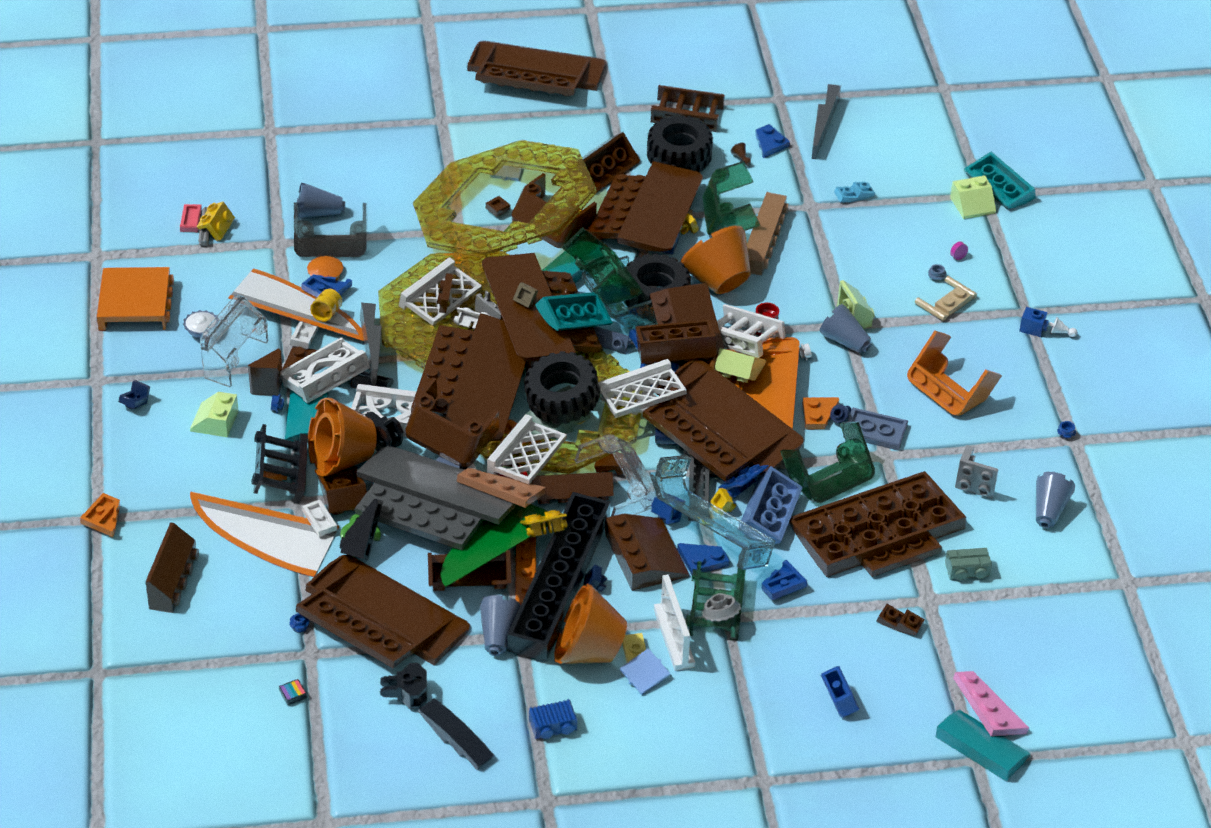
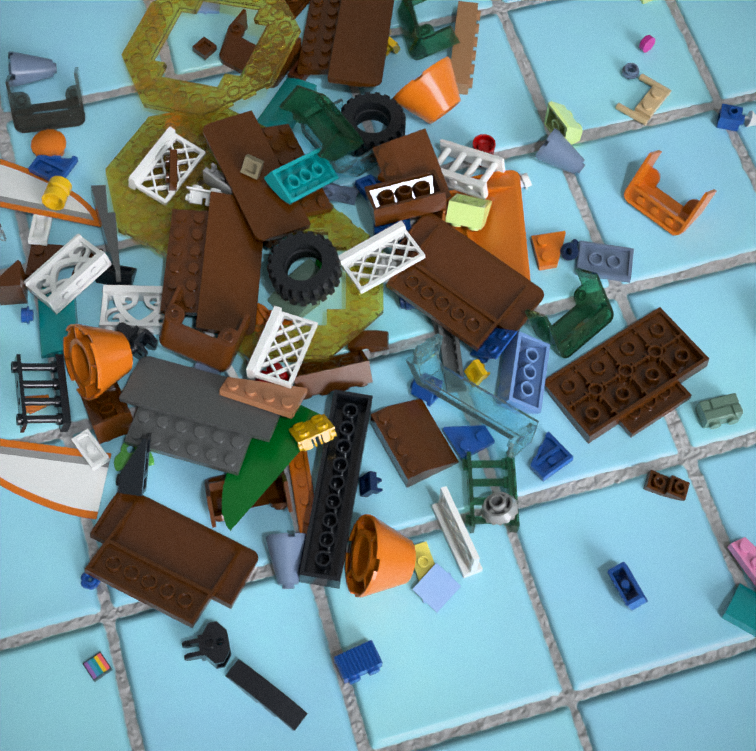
camera: 10 degrees left, 20 degrees up
(641, 489) = (389, 352): clear windscreen -> none
(975, 476) = (709, 311): light grey bracket -> none

